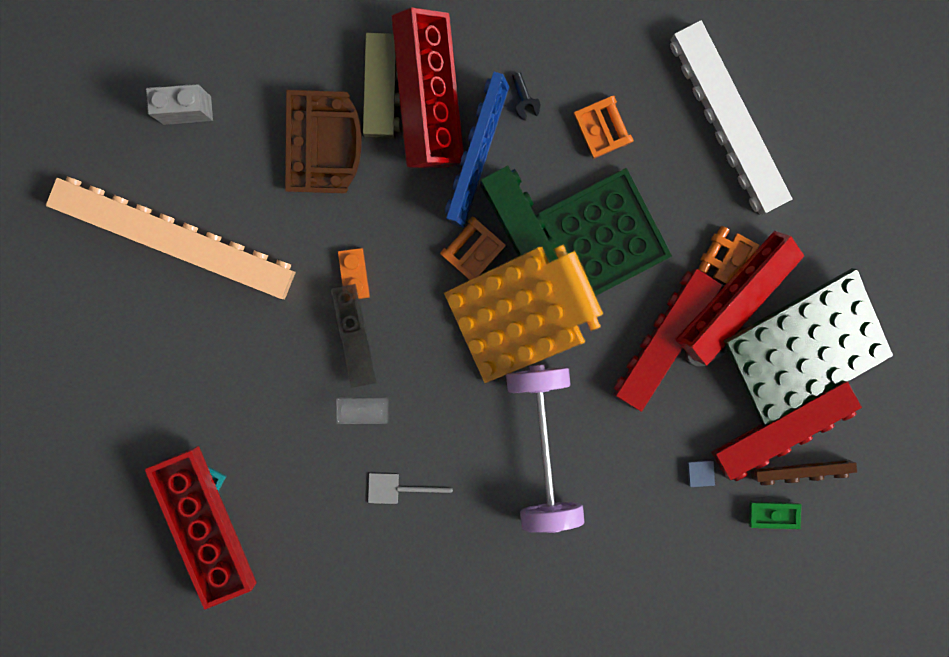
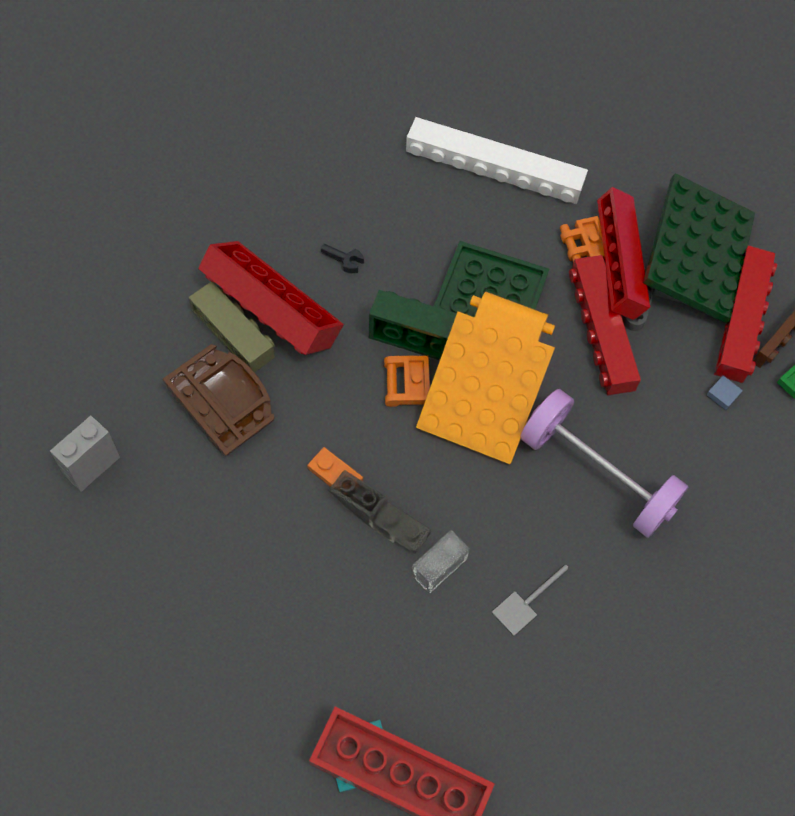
camera: 45 degrees left, 25 degrees down
(170, 238) = (160, 566): light nougat brick -> none
(474, 159) = (345, 308): blue plate -> none
(595, 128) = (414, 236): orange plate -> none

